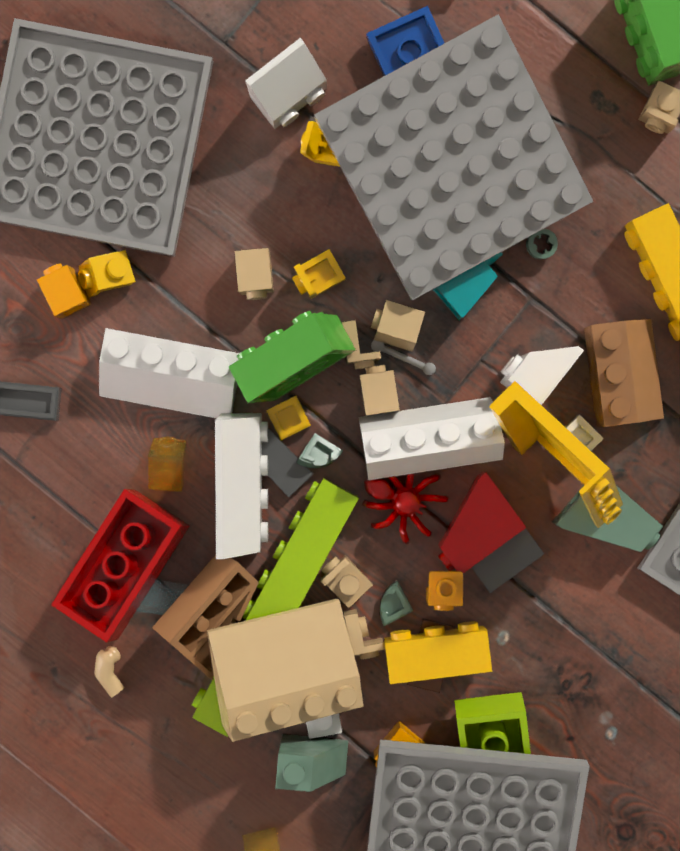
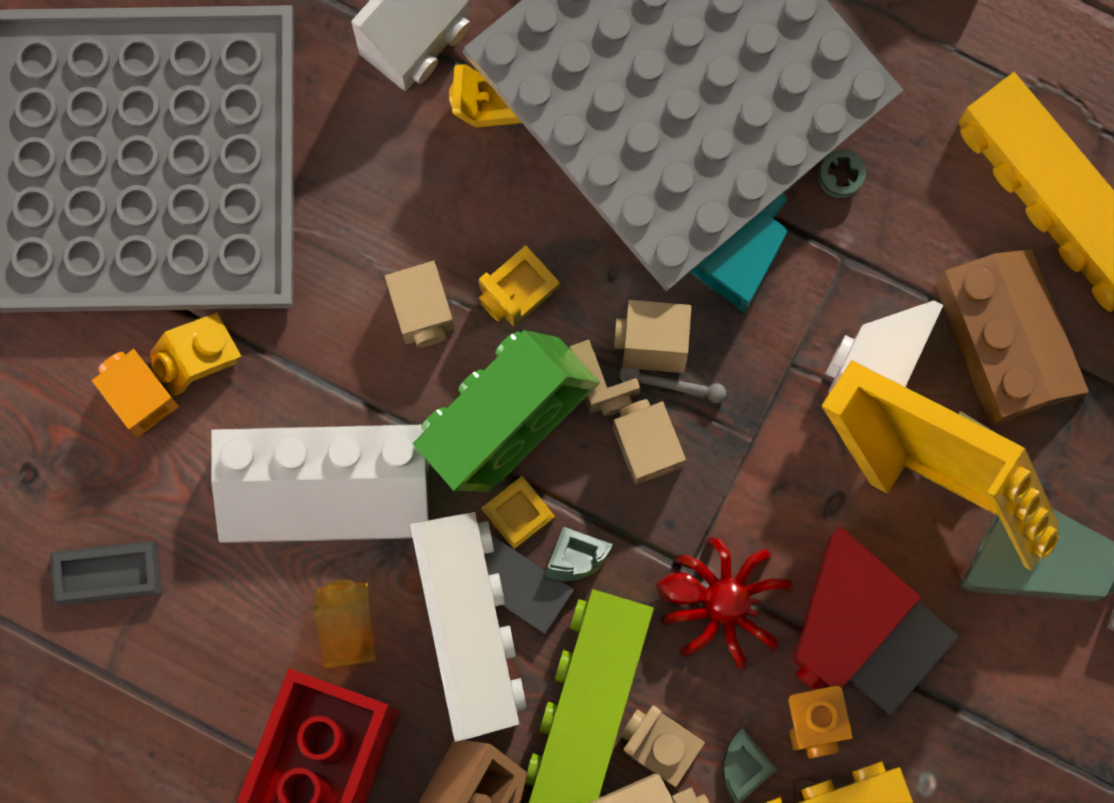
camera: 10 degrees left, 10 degrees down
(431, 438) = (745, 494): white slope -> none

